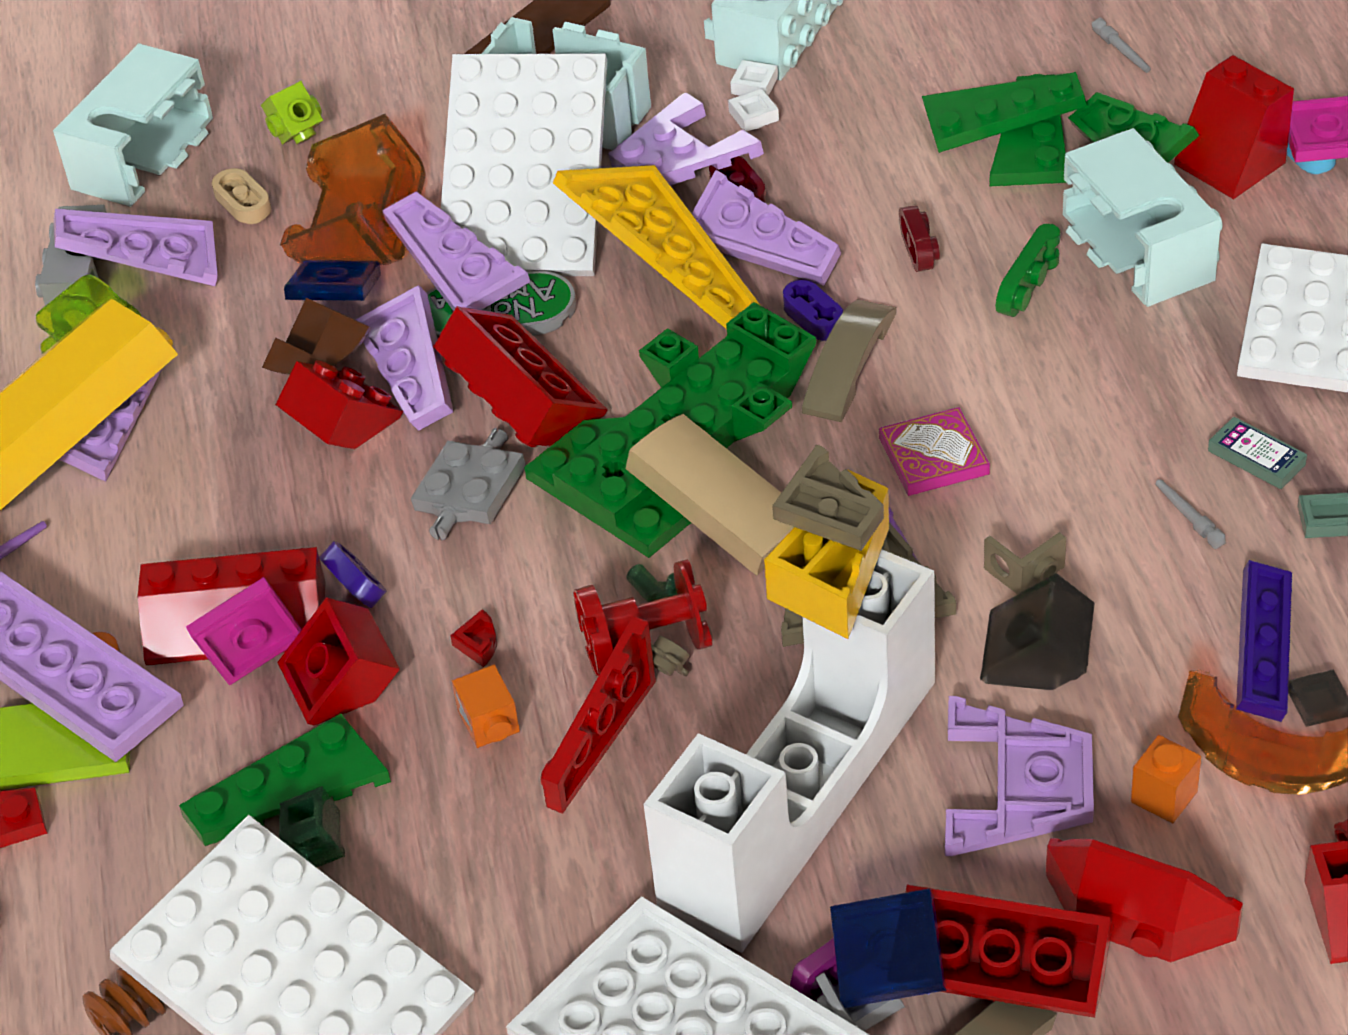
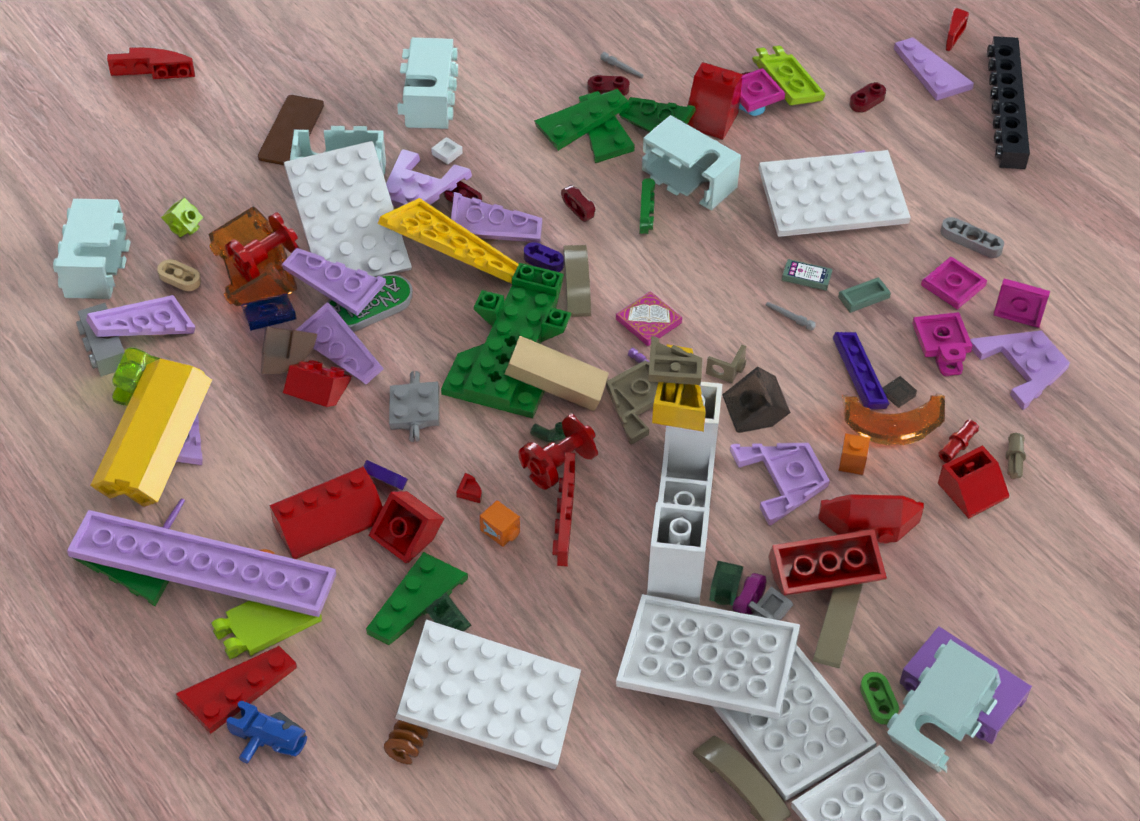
camera: 30 degrees left, 5 degrees up
(245, 631) = (354, 524): dark pink tile -> none
(358, 184) = (255, 252): none -> red piece
(516, 375) = (409, 339): red slope -> none
(669, 657) = (581, 468): dark tan plate -> none
(753, 76) = (436, 131): white plate -> none
(800, 926) = (726, 583): none -> clear green brick
(887, 948) = (779, 578): clear blue tile -> none
(1093, 72) = (608, 83): none -> dark red plate

